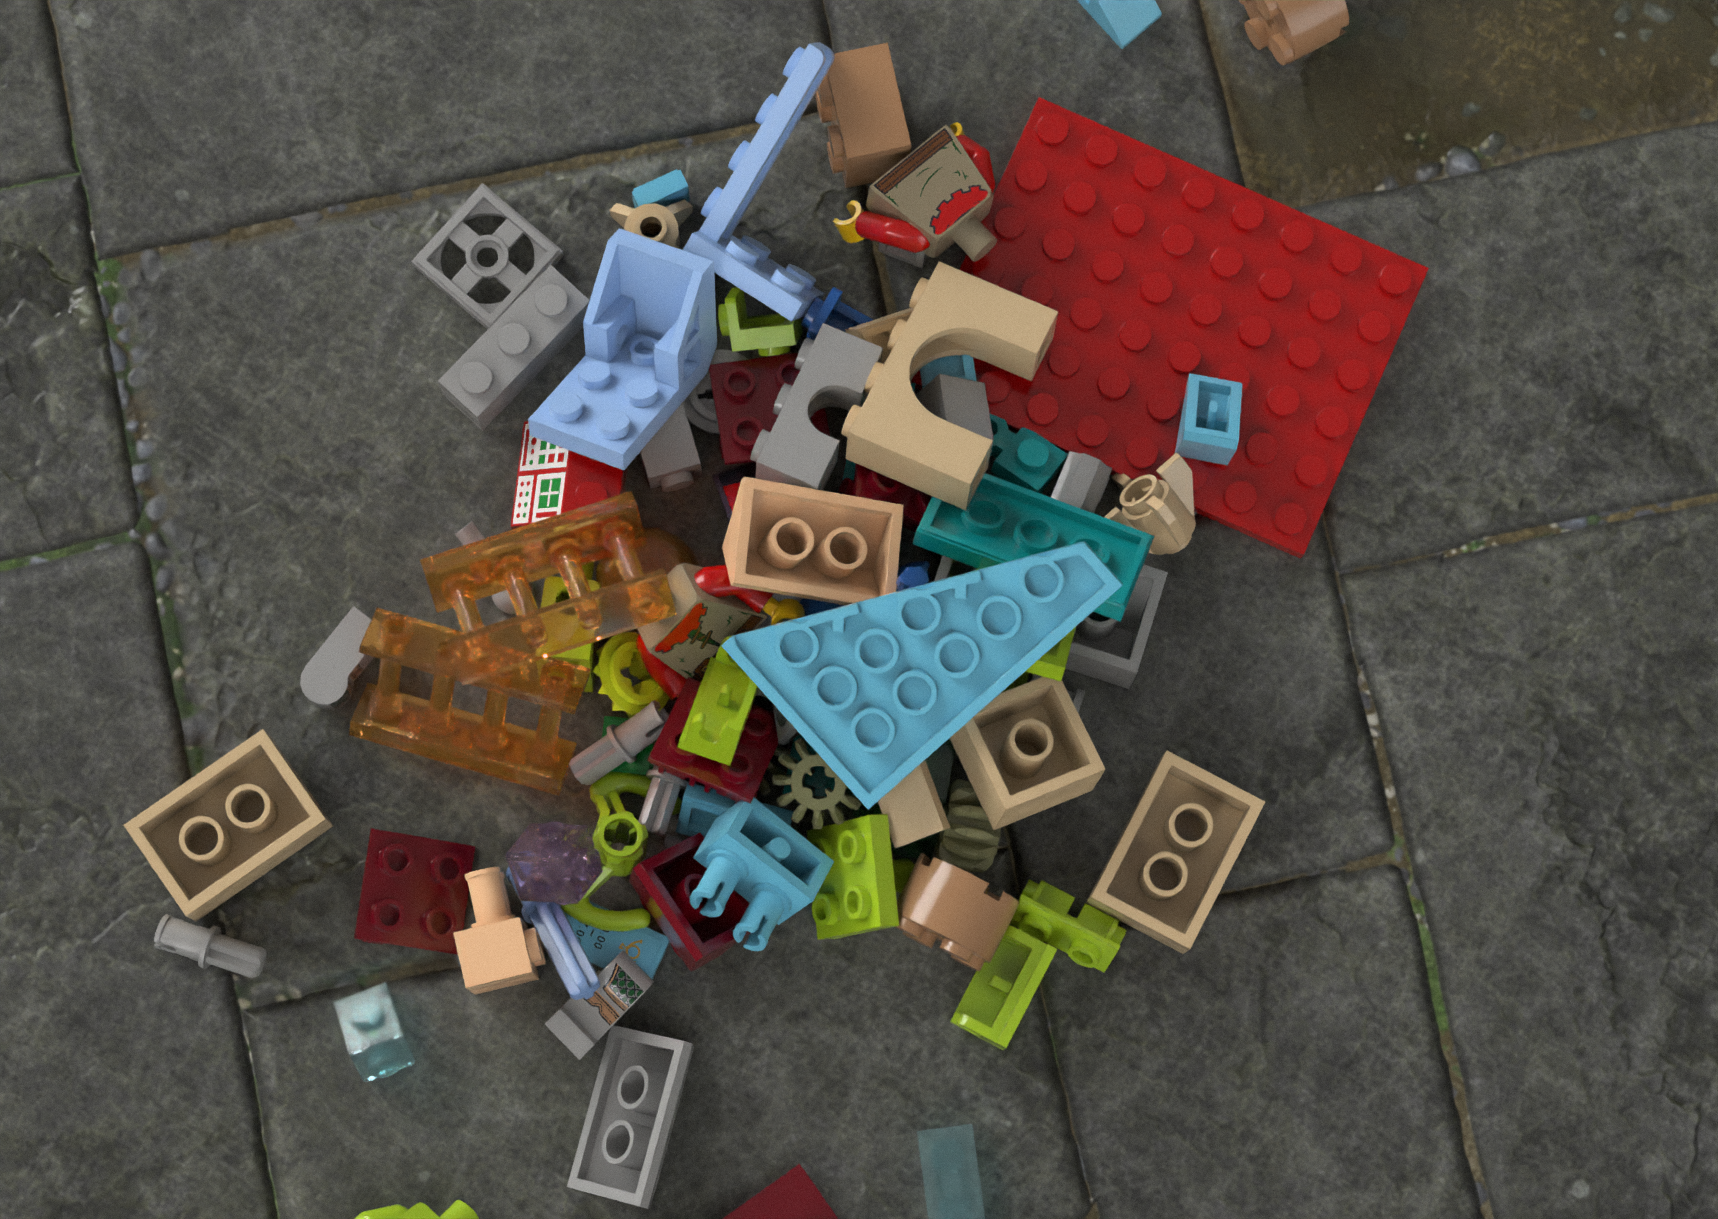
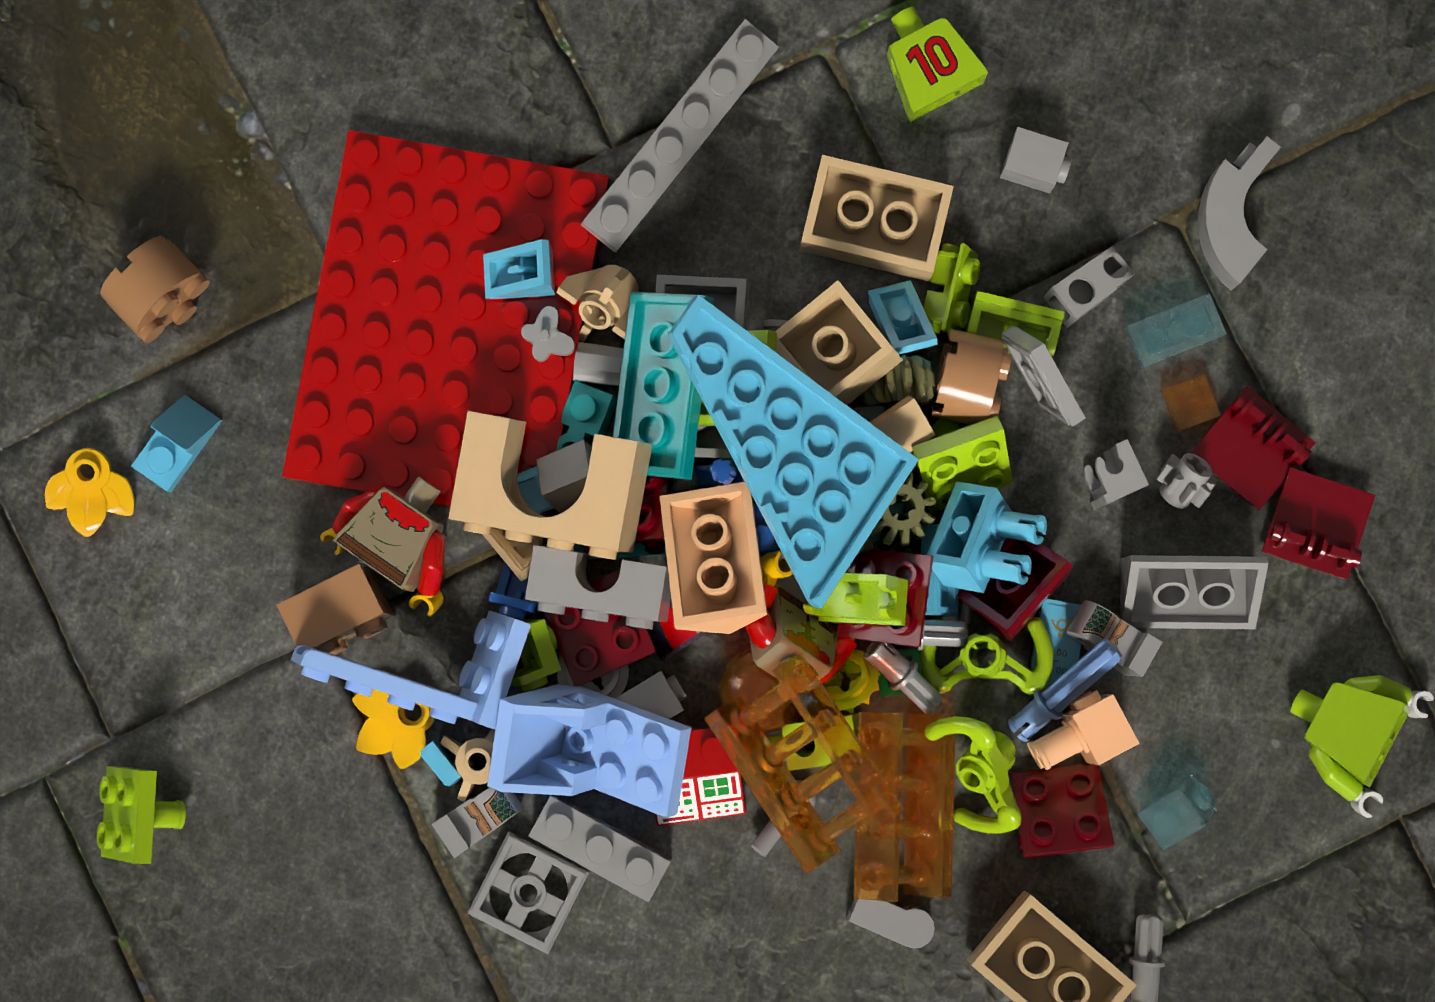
camera: 95 degrees left, 5 degrees up
(485, 808) = (984, 771): none -> lime piece
(554, 863) = (1017, 701): brick -> none
(584, 214) = (476, 819): none -> light grey leg
(710, 149) = (391, 729): none -> yellow plate
(766, 1144) = (1185, 481): none -> light grey gear
(783, 1054) = (1118, 475): none -> light grey hinge
(860, 1181) = (1190, 403): none -> clear orange tile
(933, 996) = (1042, 375): none -> light grey piece
(1033, 1093) = (1089, 285): none -> light grey leg
(1047, 852) = (902, 317): none -> medium azure slope
(1127, 431) = (546, 336): none -> light grey piece
(1200, 1067) = (1036, 160): none -> light grey brick
(1332, 649) = (679, 136): none -> light grey plate
(1349, 969) = (931, 63): none -> lime torso

